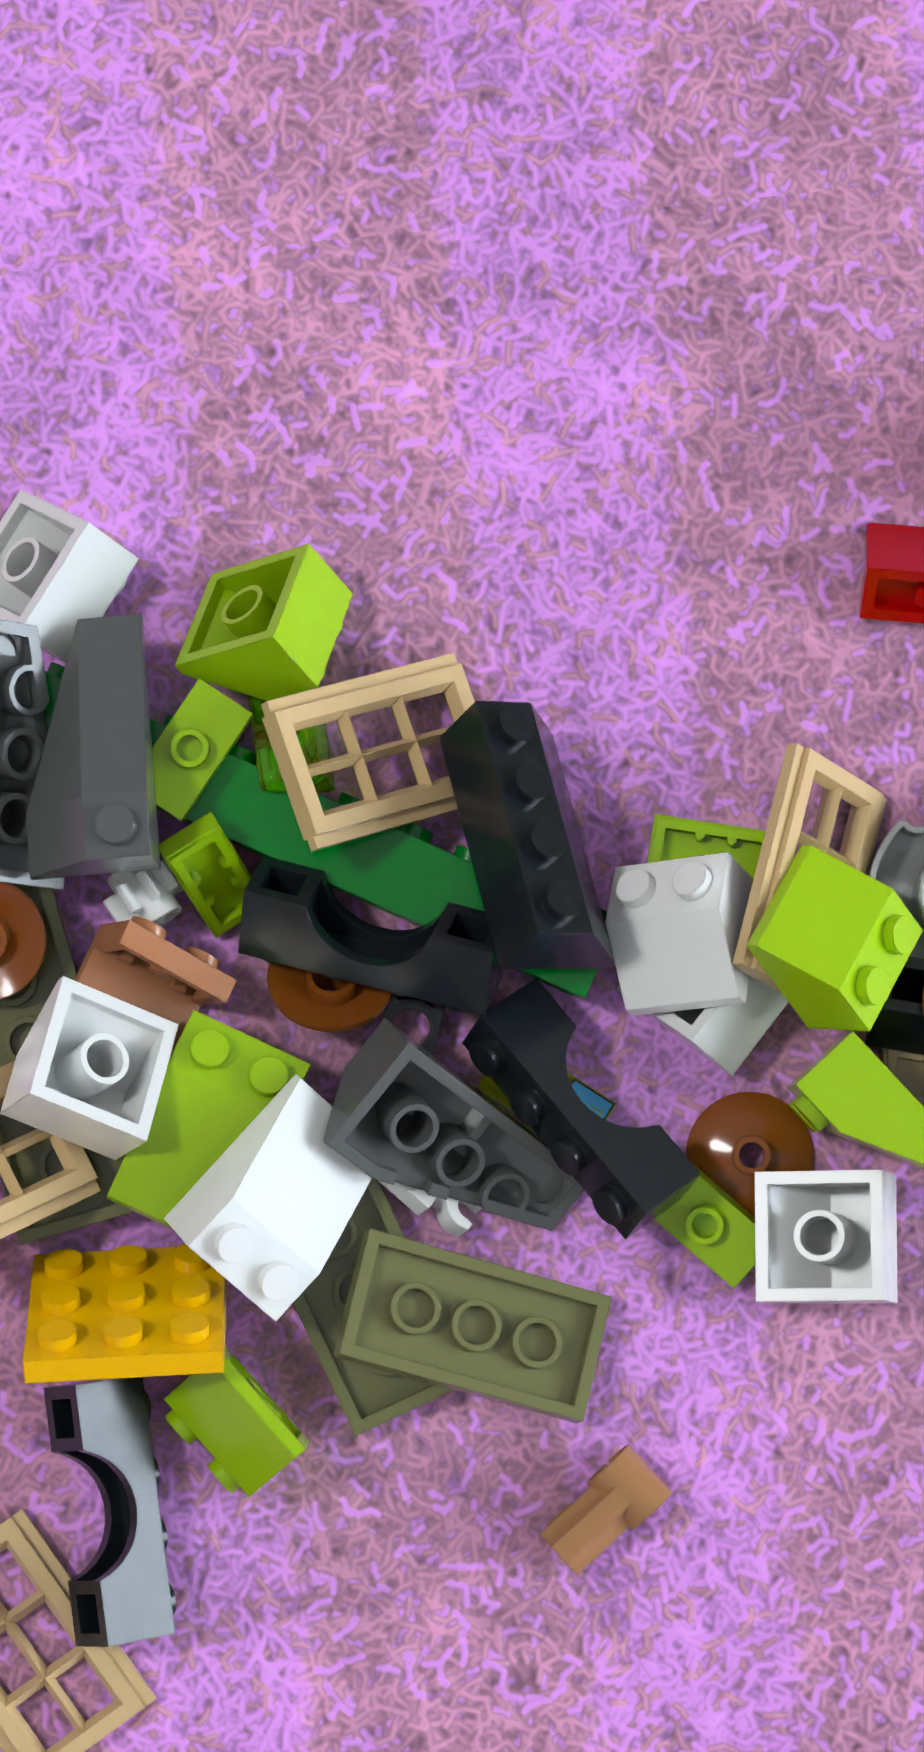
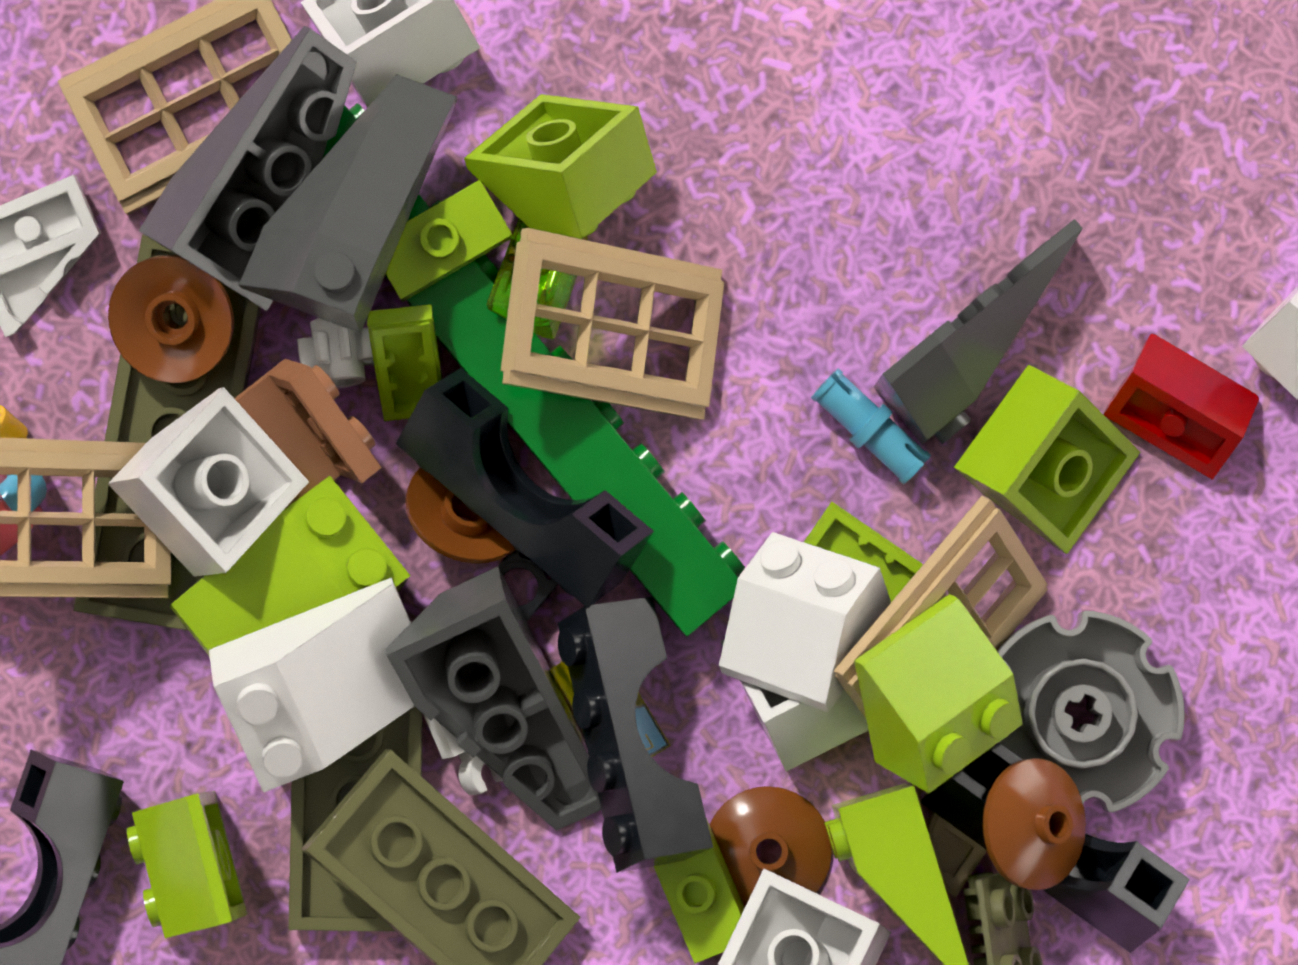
camera: 25 degrees right, 0 degrees up
(124, 1315) = (128, 720): yellow plate -> none
(524, 840) = (701, 467): black slope -> none
(656, 729) = (871, 426): none -> medium azure pin
(707, 631) = (955, 362): none -> dark grey wedge
(829, 680) = (1048, 458): none -> lime slope

